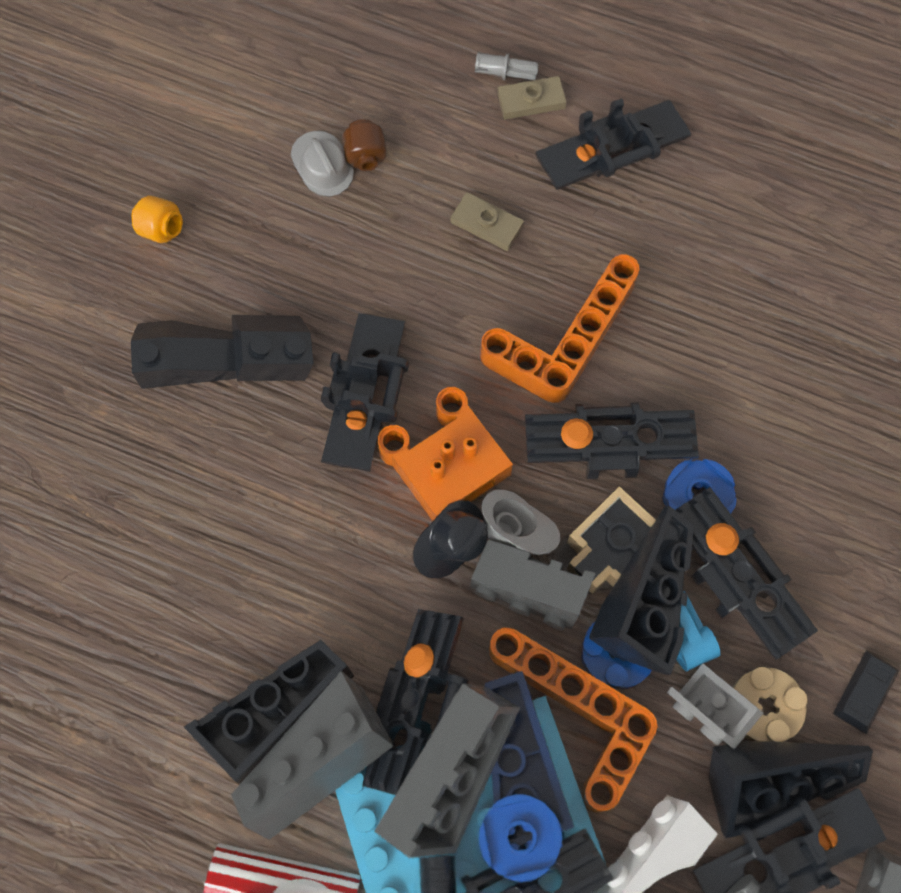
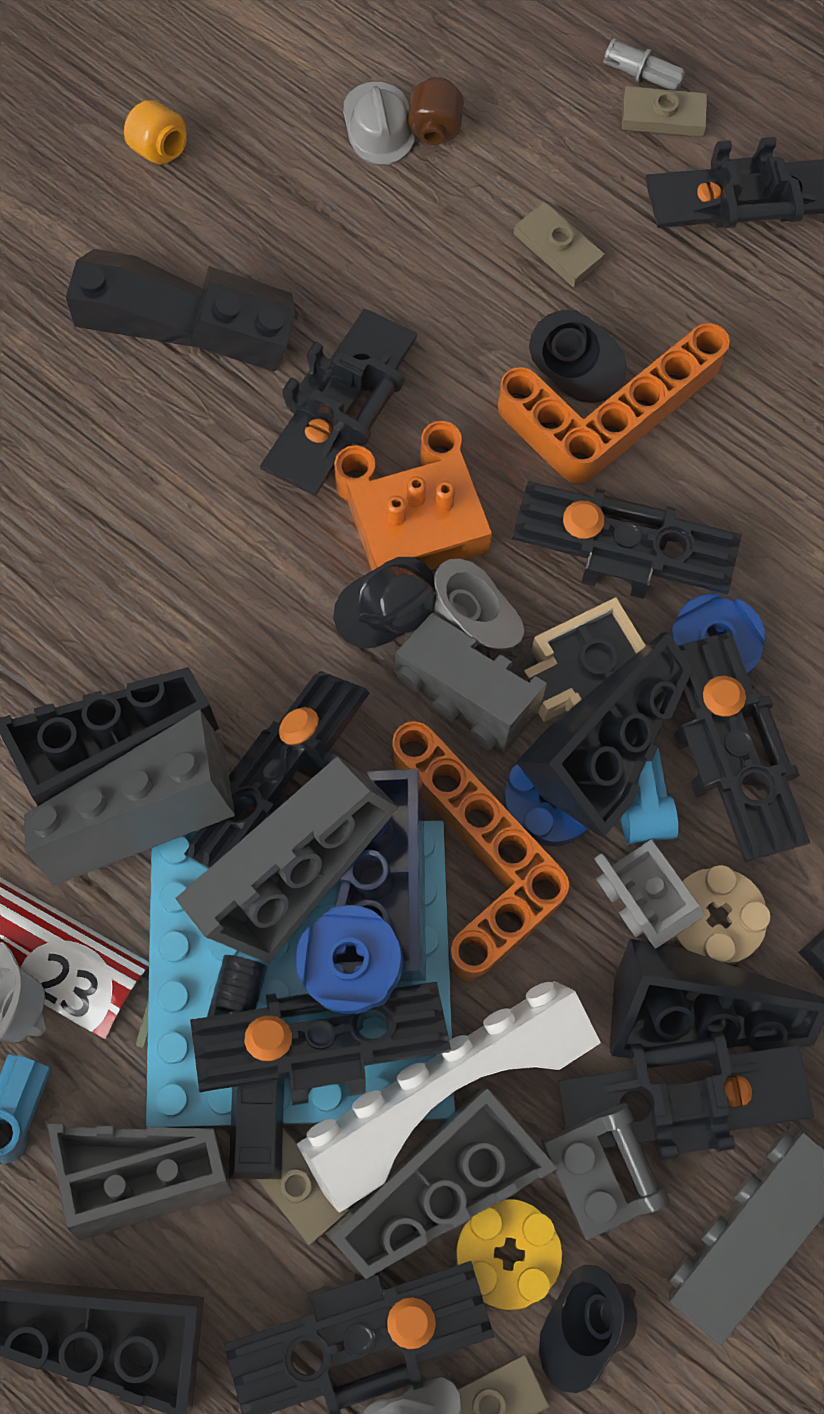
camera: 15 degrees right, 0 degrees up
(531, 306) = (578, 355): none -> black piece

